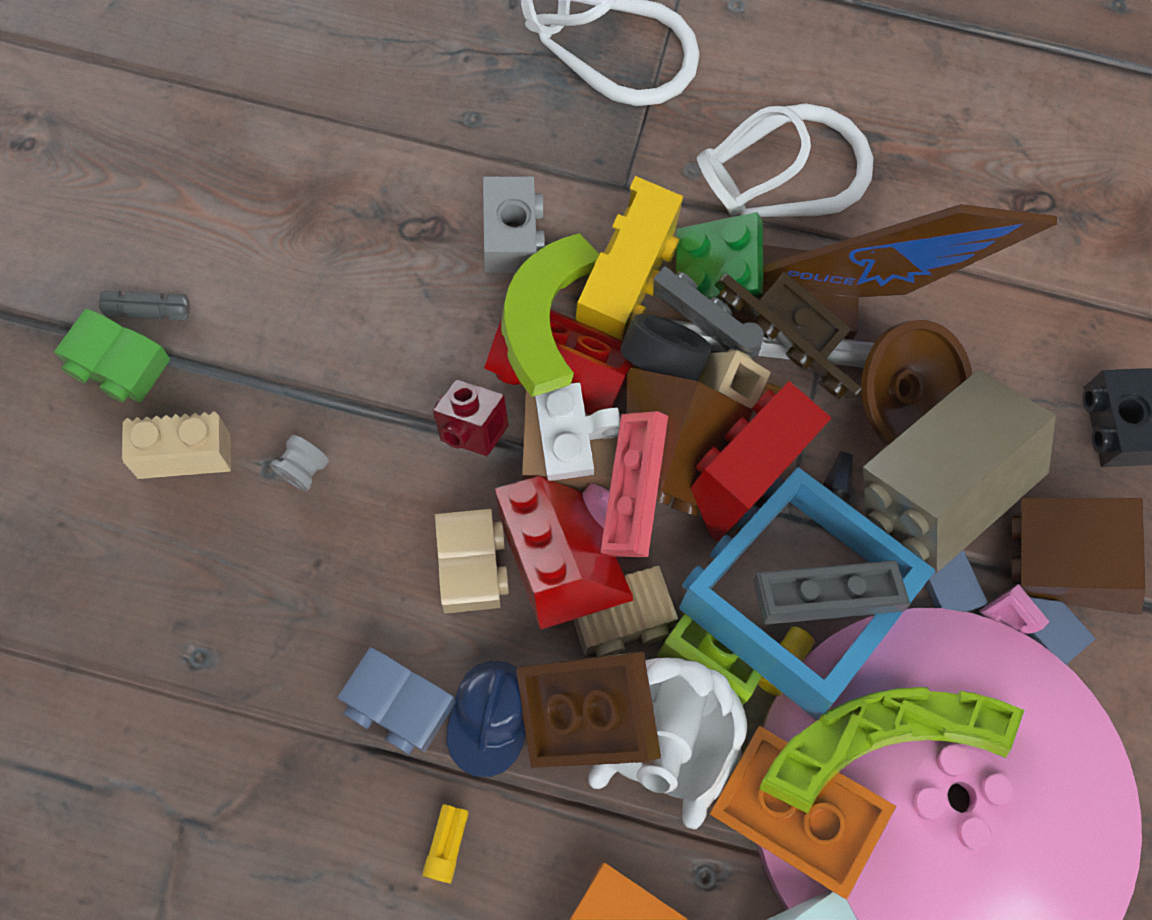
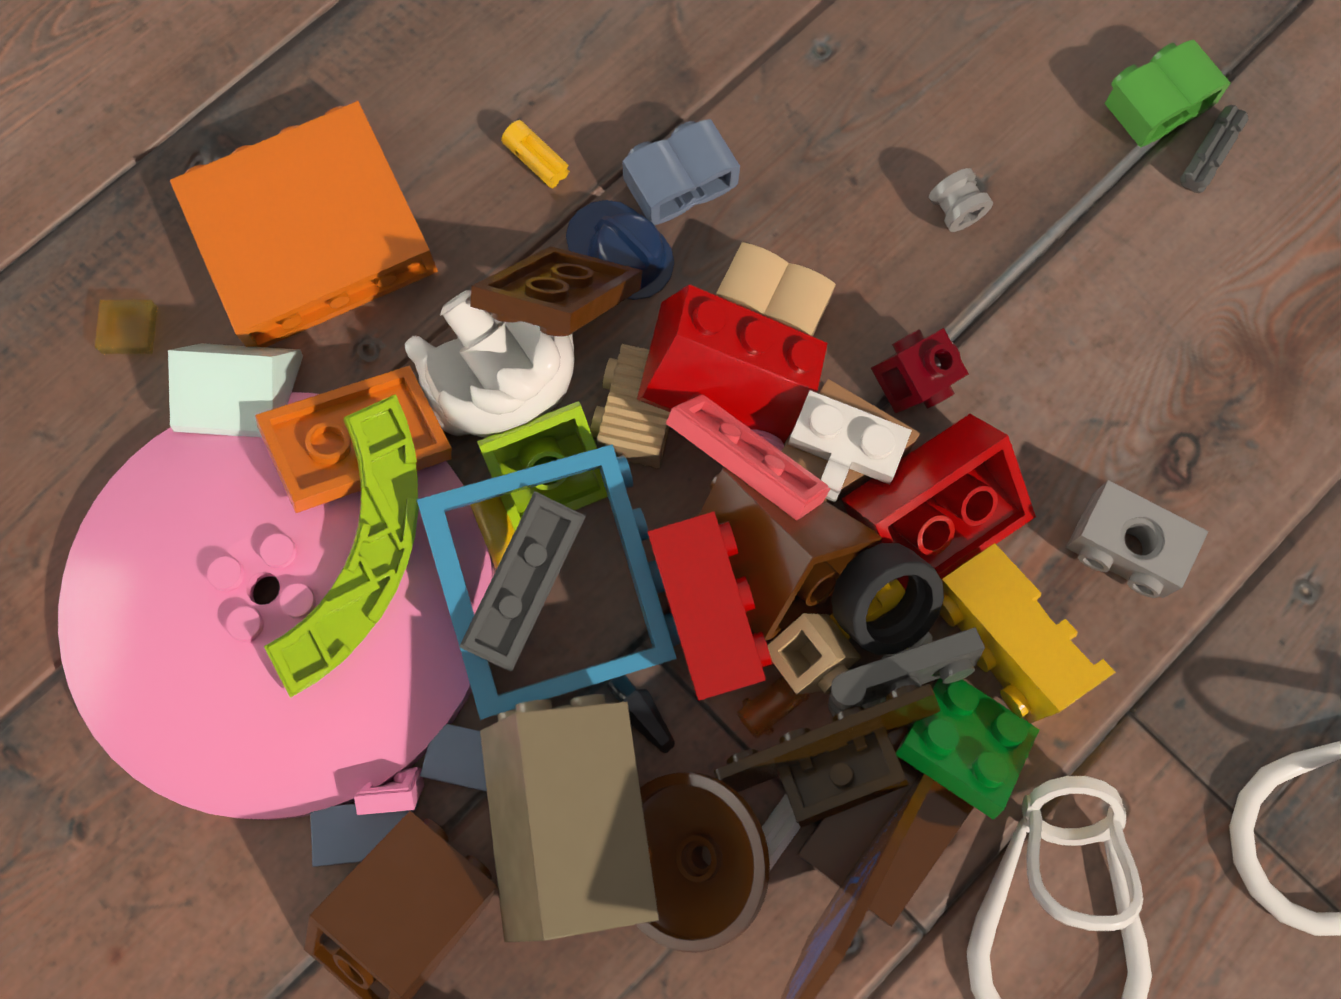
camera: 130 degrees right, 5 degrees up
(176, 445) = (1037, 104): tan brick -> none
(527, 312) = (1016, 481): lime tile -> none

